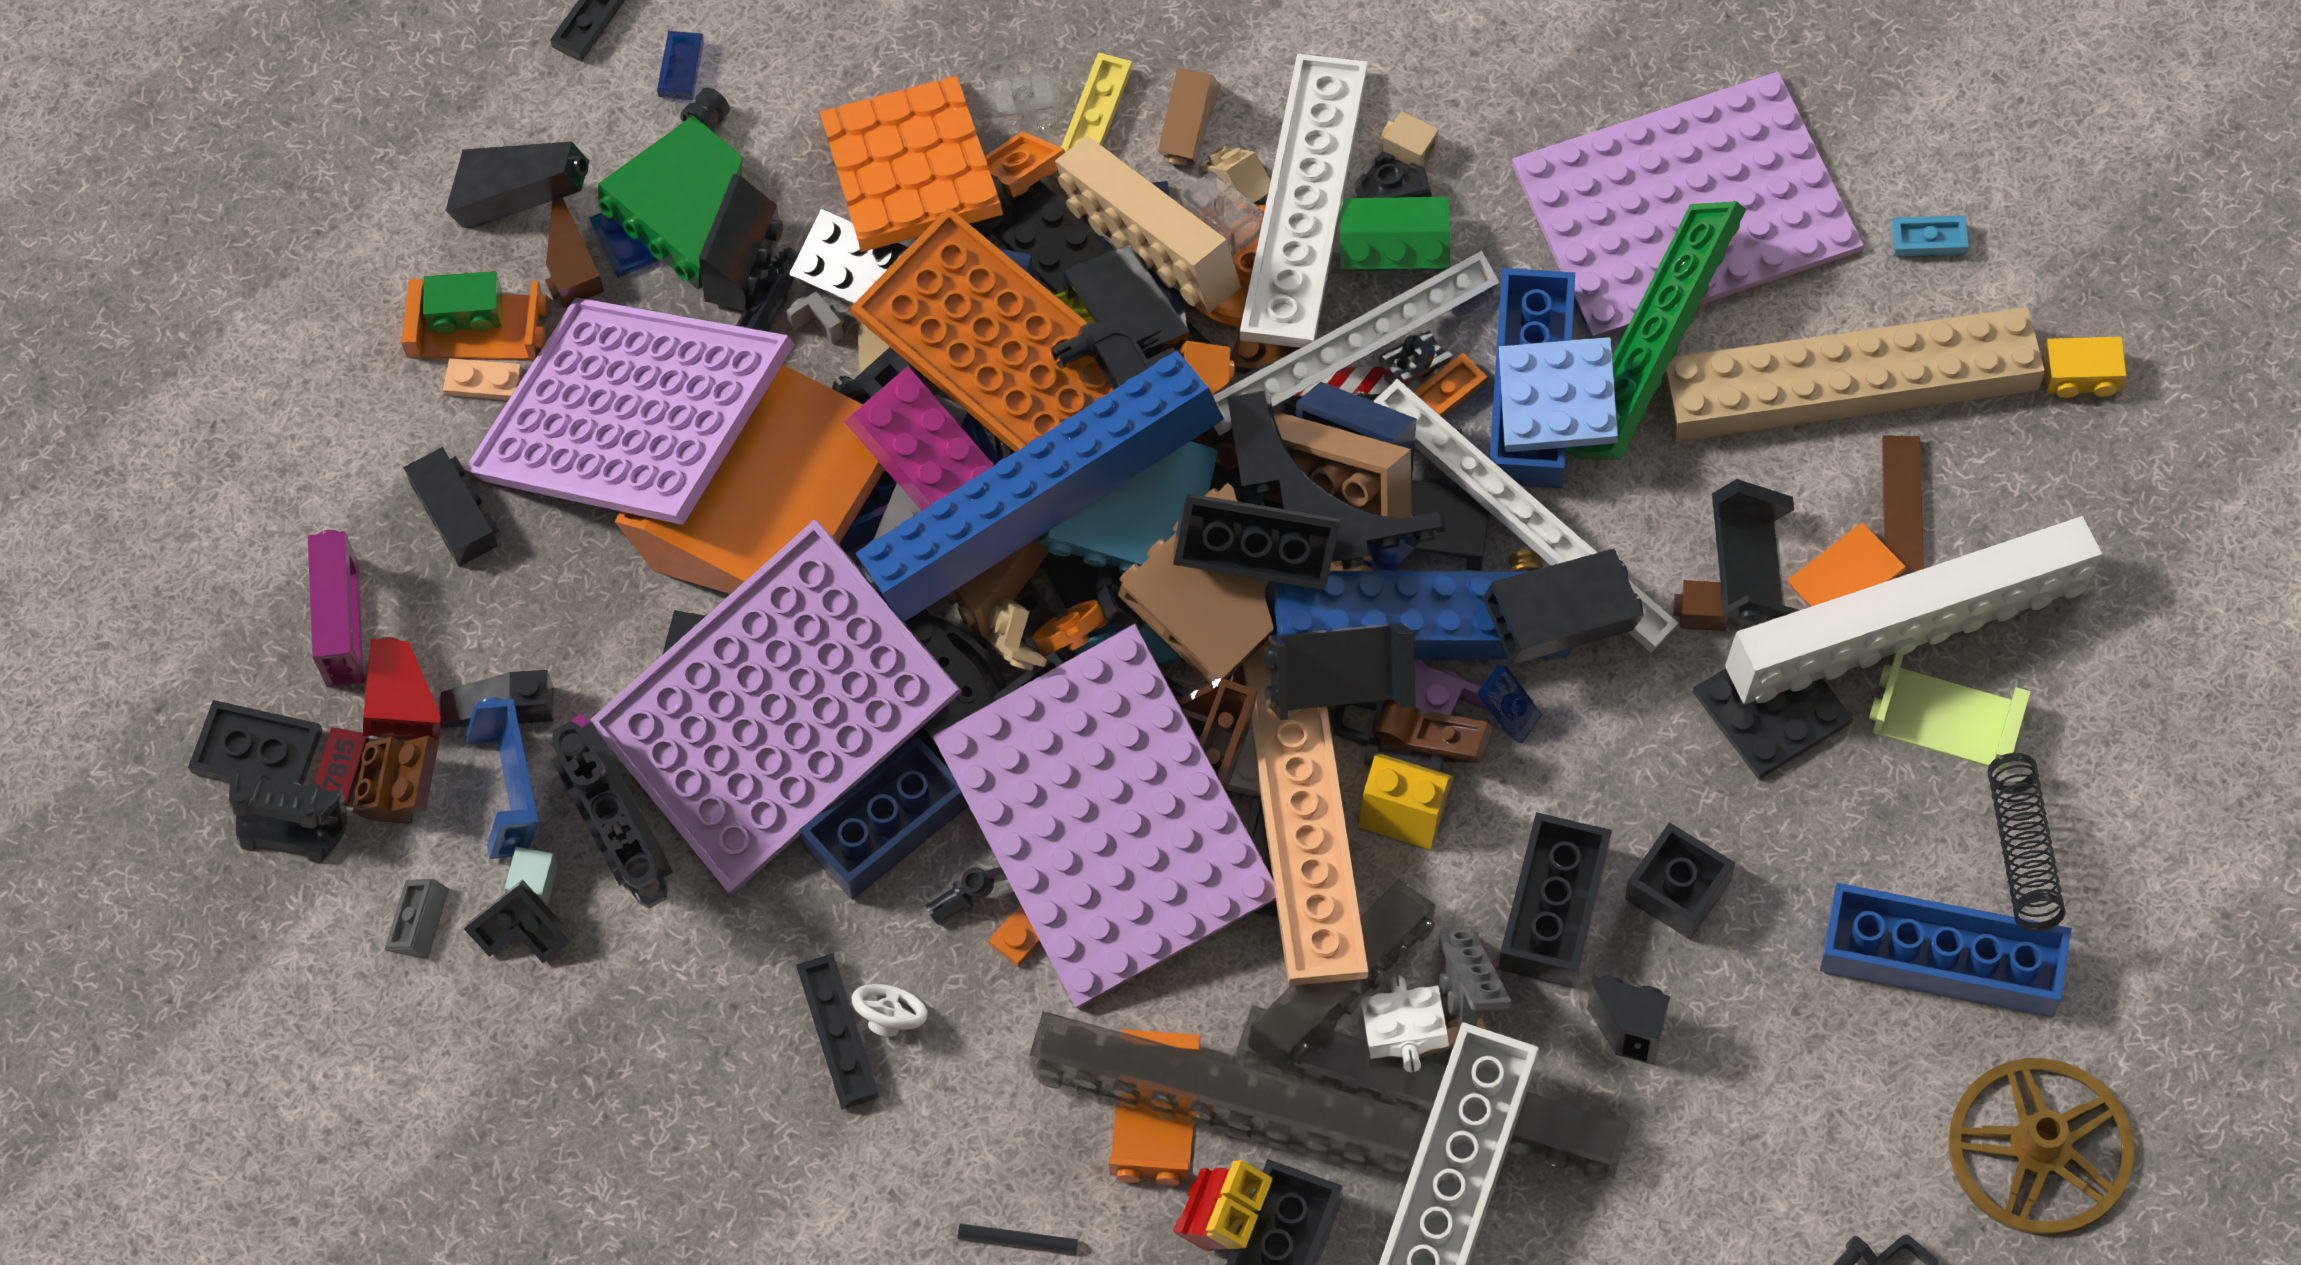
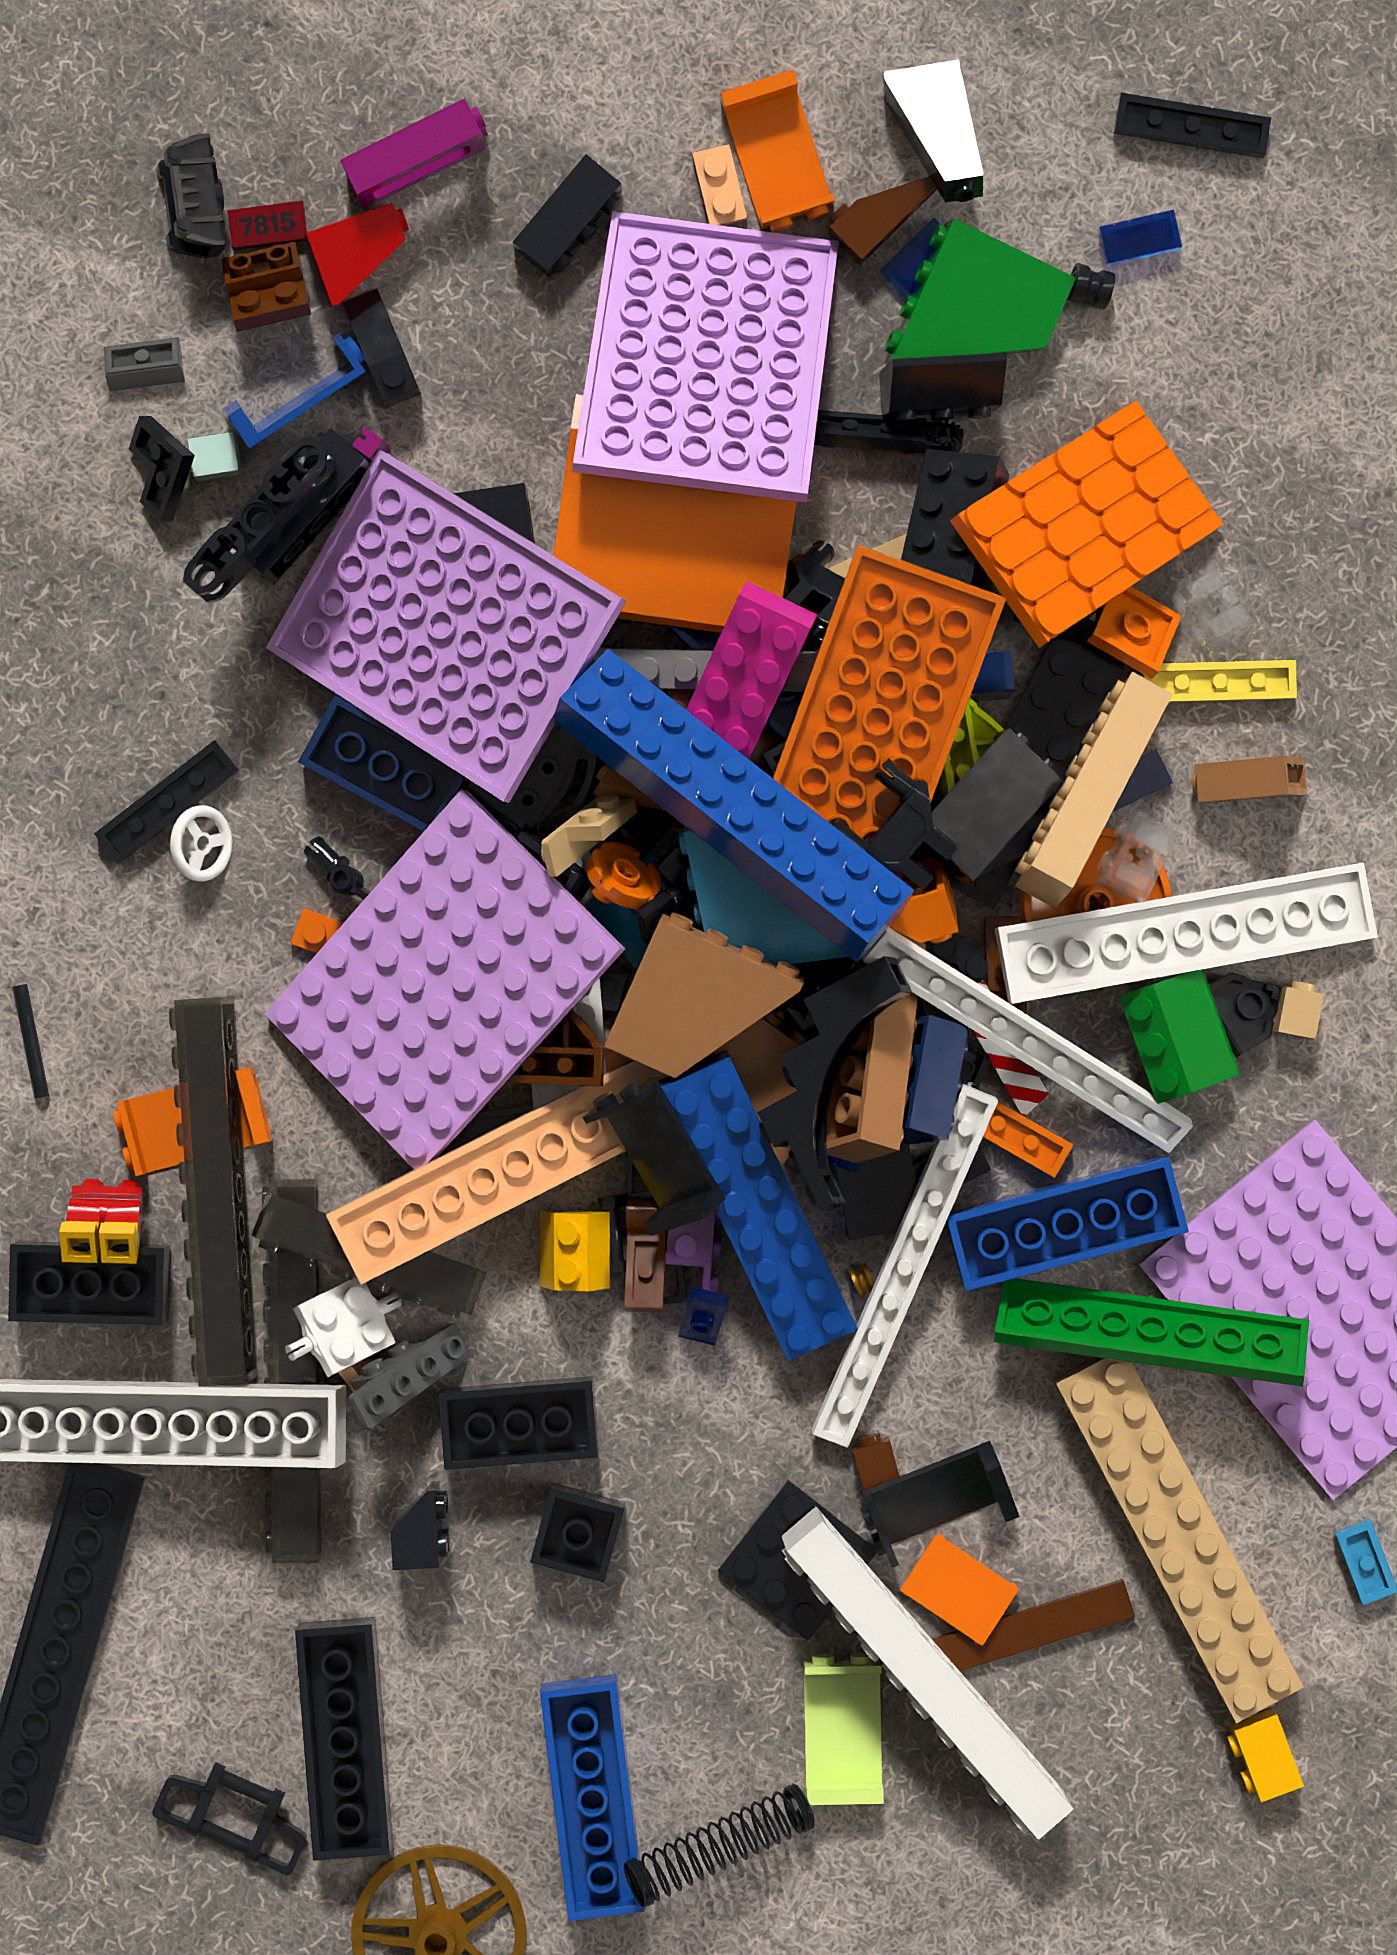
camera: 65 degrees right, 25 degrees up
(254, 744) = (255, 137): black plate -> none
(462, 302) = (790, 133): green brick -> none
(825, 317) = (899, 502): light grey bracket -> none
(1240, 170) = (1199, 852): tan slope -> none
(1255, 541) = (732, 1038): black slope -> none
(1426, 358) = (1055, 1110): black hips -> none
(1558, 394) = (1039, 1261): light blue plate -> none
(1563, 606) = (806, 1342): black brick -> none
(1815, 1160) = (344, 1738): none -> black brick

